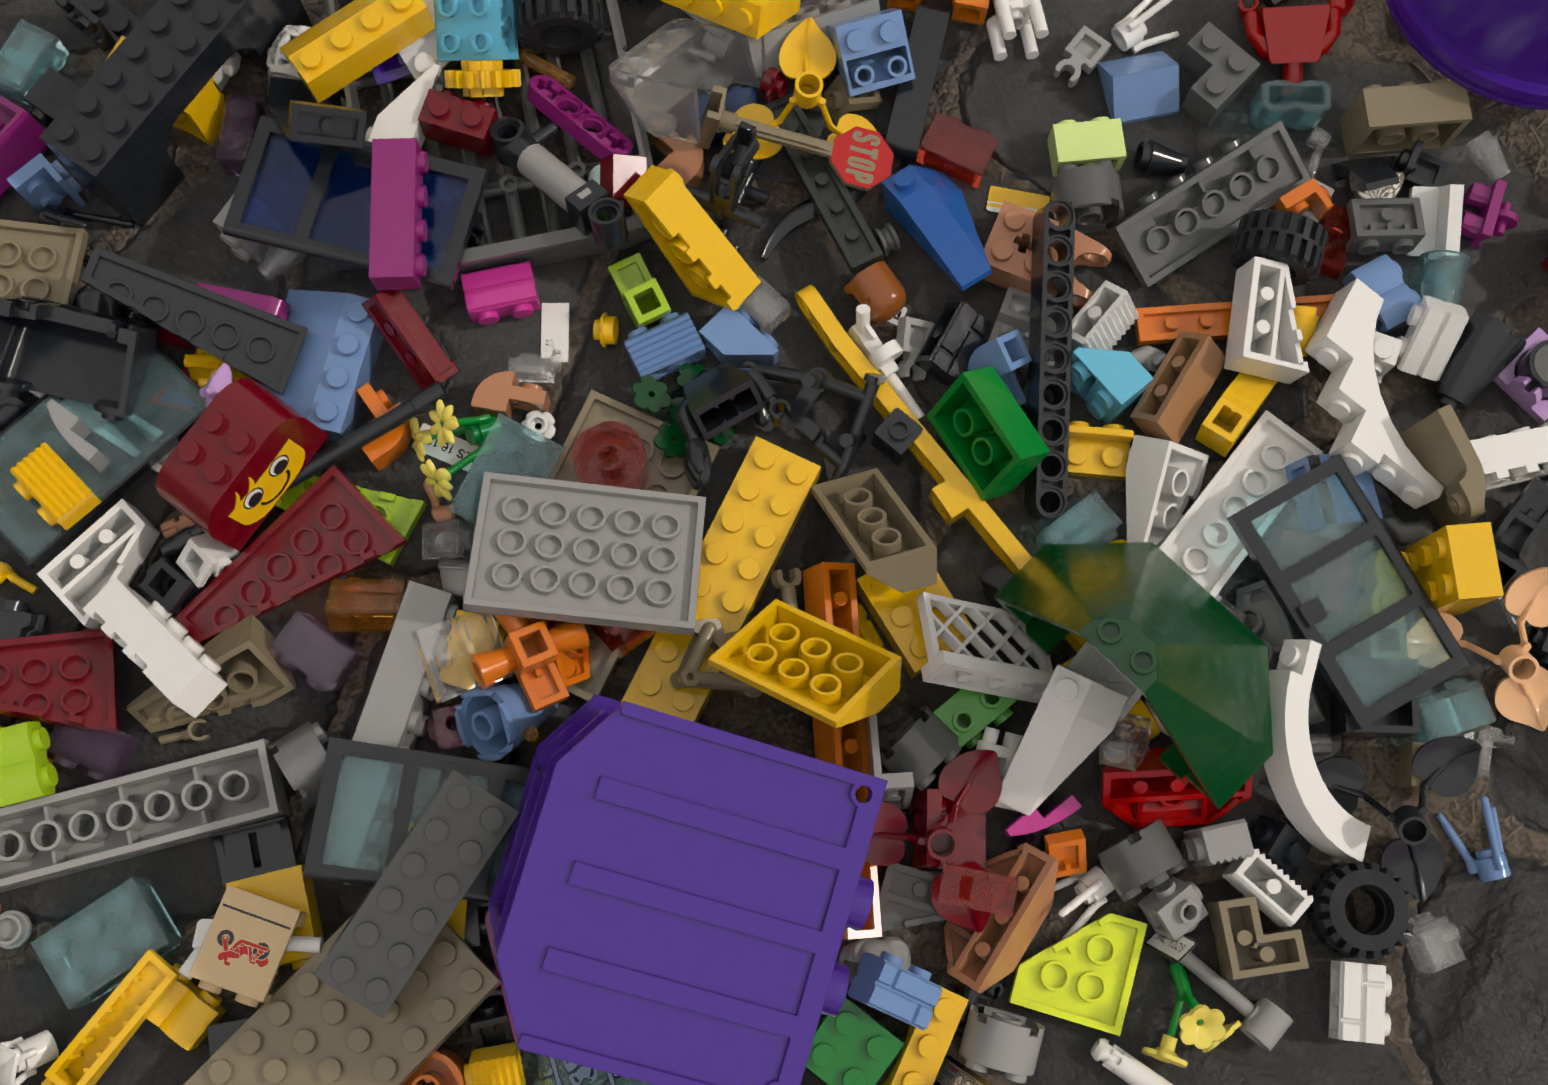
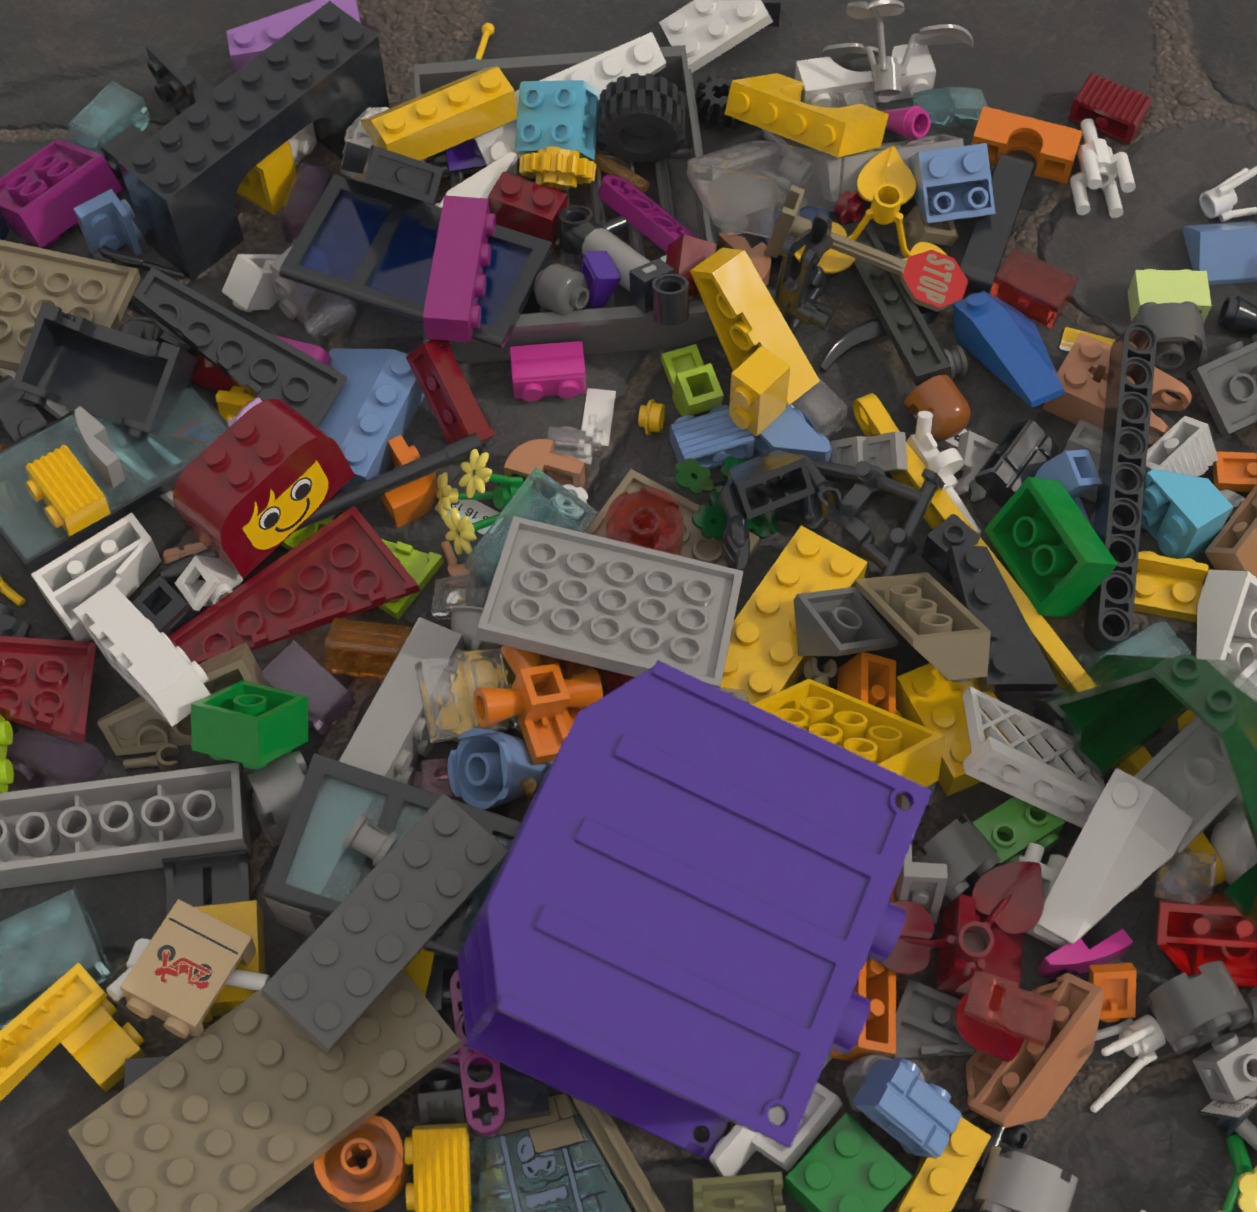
camera: 10 degrees right, 15 degrees down
(195, 227) = (252, 282): none -> white slope
(267, 704) = (249, 723): none -> green brick
(393, 815) = (369, 839): none -> light grey bush
(501, 219) = (561, 289): none -> dark grey head
(534, 204) = (601, 278): none -> dark purple slope
(702, 307) = (758, 391): none -> yellow brick
(798, 538) = (838, 624): none -> dark grey slope
(814, 350) = (881, 450): none -> light grey slope
(943, 516) = (1013, 653): none -> black wing
(1082, 53) = (1168, 213): light grey plate -> none
(1084, 974) = (1126, 1135): neon yellow plate -> none

